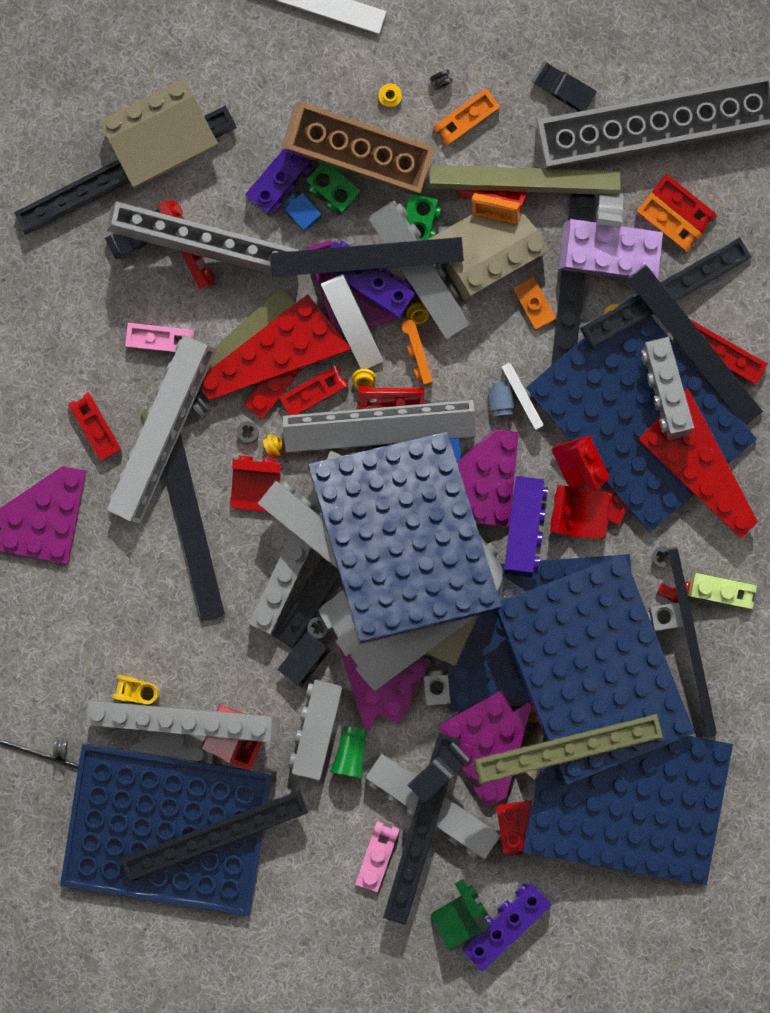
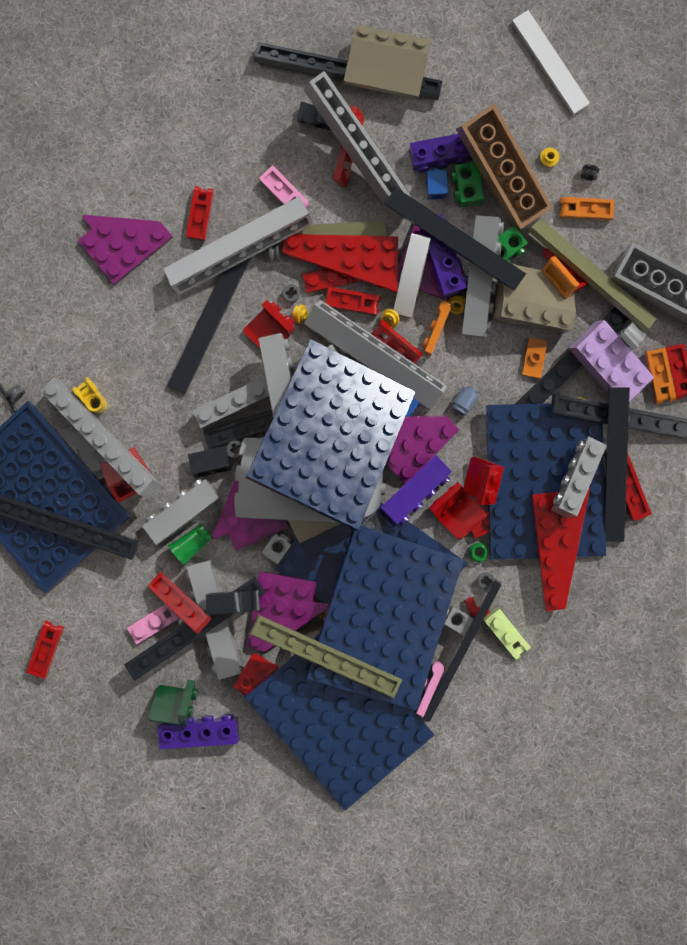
camera: 45 degrees right, 0 degrees up
(294, 970) = (45, 650): none -> red plate
(386, 816) = (179, 602): none -> red plate
(522, 396) = (480, 409): white tile -> none
(564, 87) = (663, 238): black piece -> none
(640, 535) = (483, 556): none -> green plate
(690, 701) = (430, 687): none -> bright pink plate

